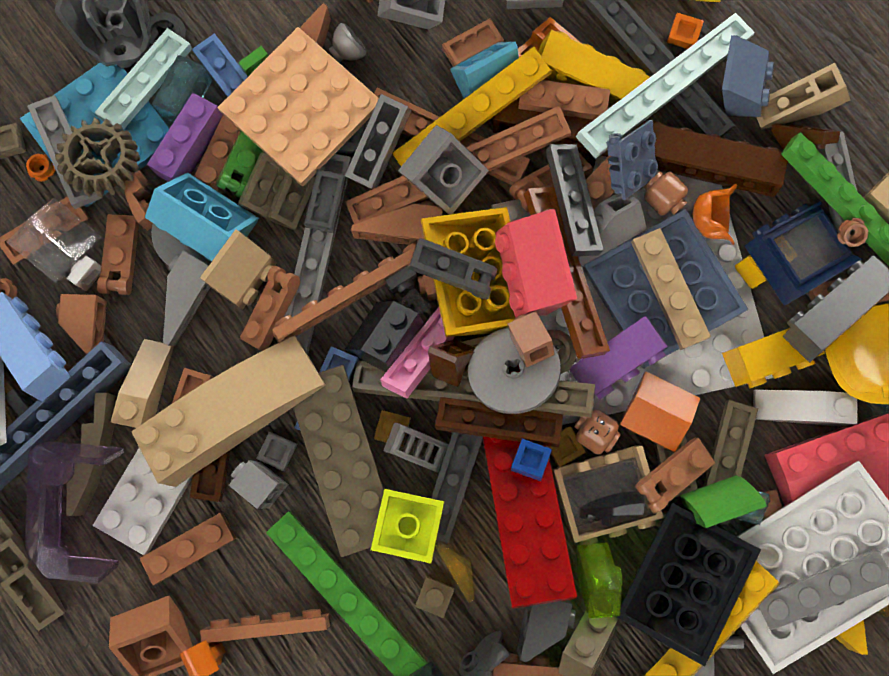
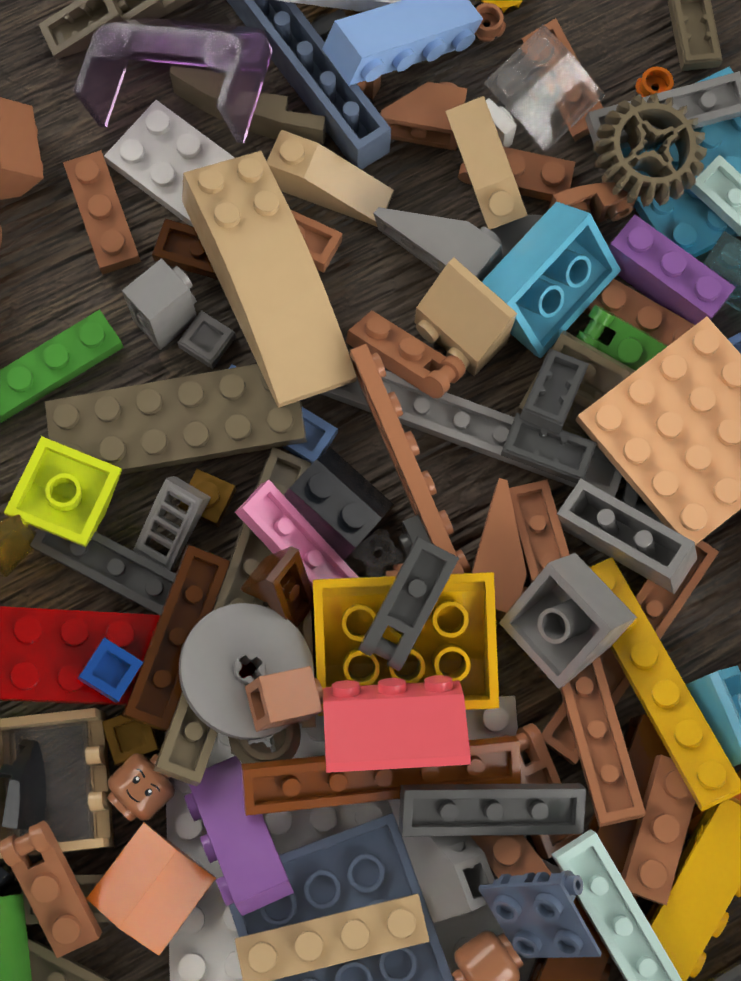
camera: 90 degrees right, 5 degrees down
(120, 271) = (486, 163): none -> tan slope
(284, 202) = (554, 391): none -> dark grey plate

